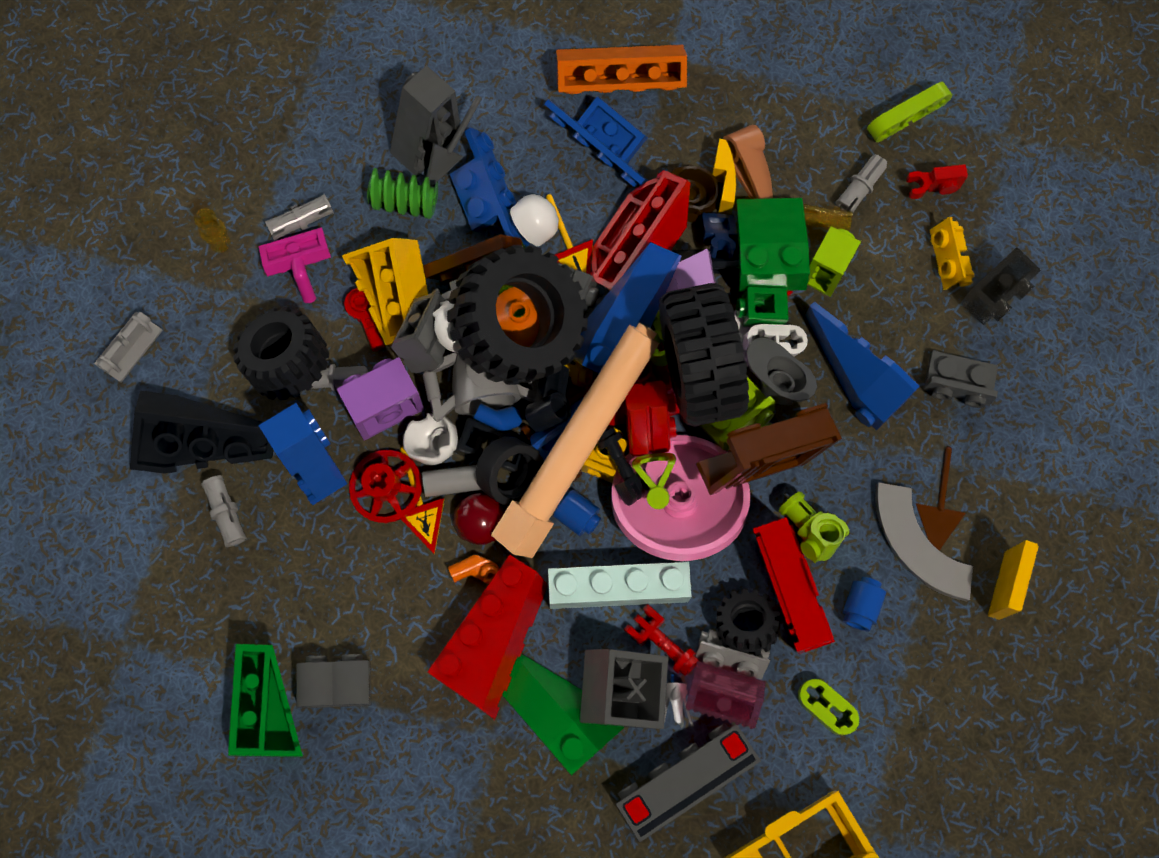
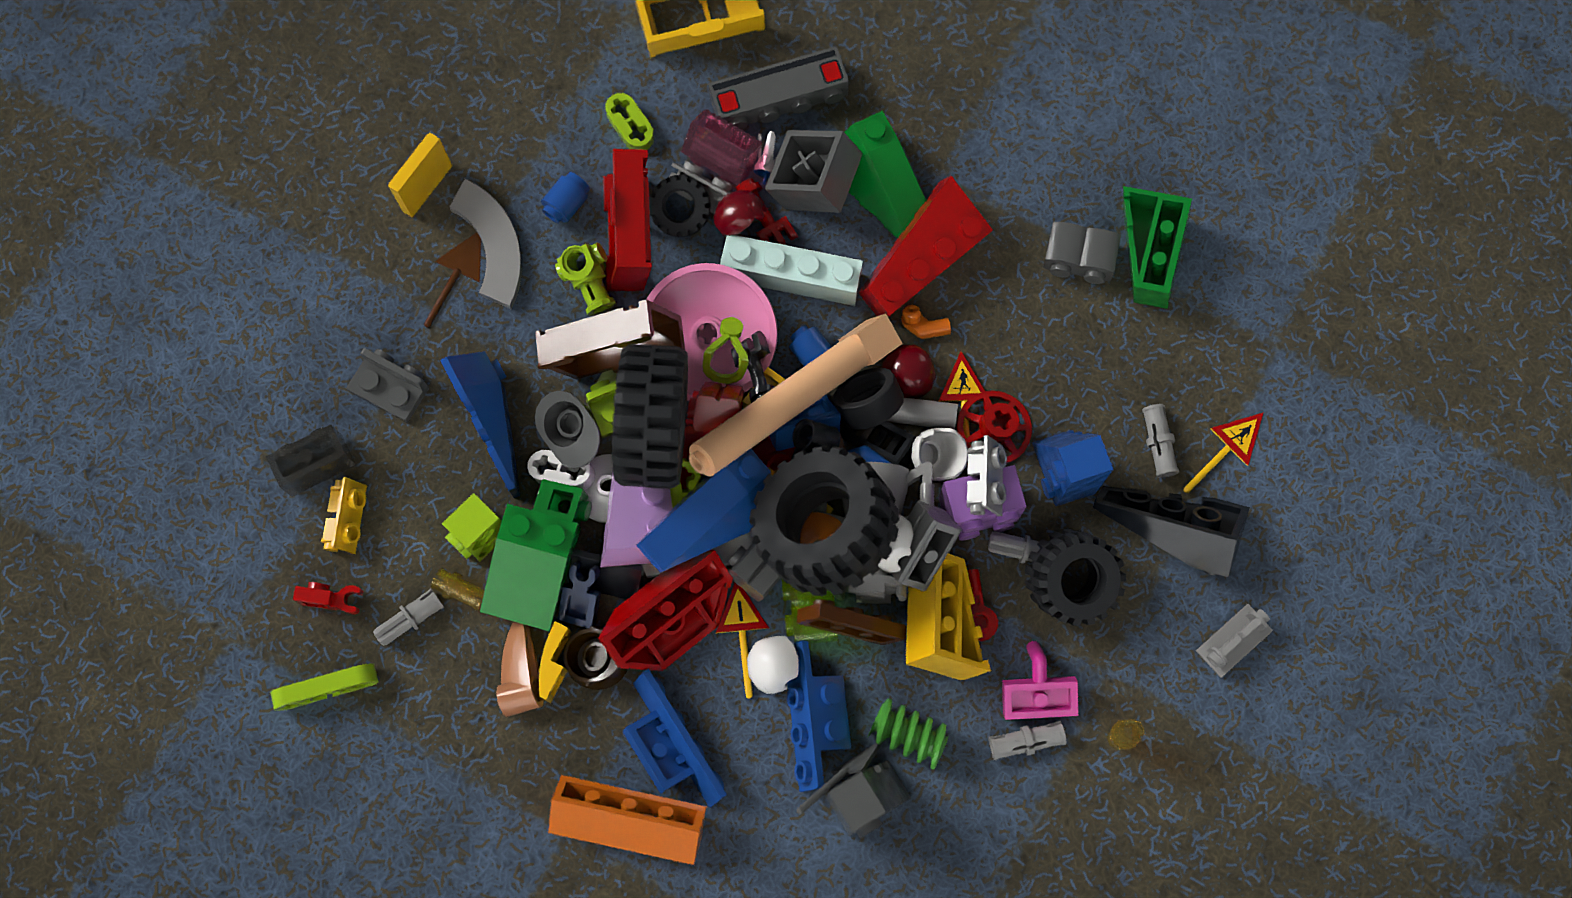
camera: 160 degrees left, 0 degrees up
(150, 537) = (1238, 437): none -> piece
(374, 384) = (987, 460): none -> light grey hinge
(686, 623) = (738, 211): none -> dark red hair

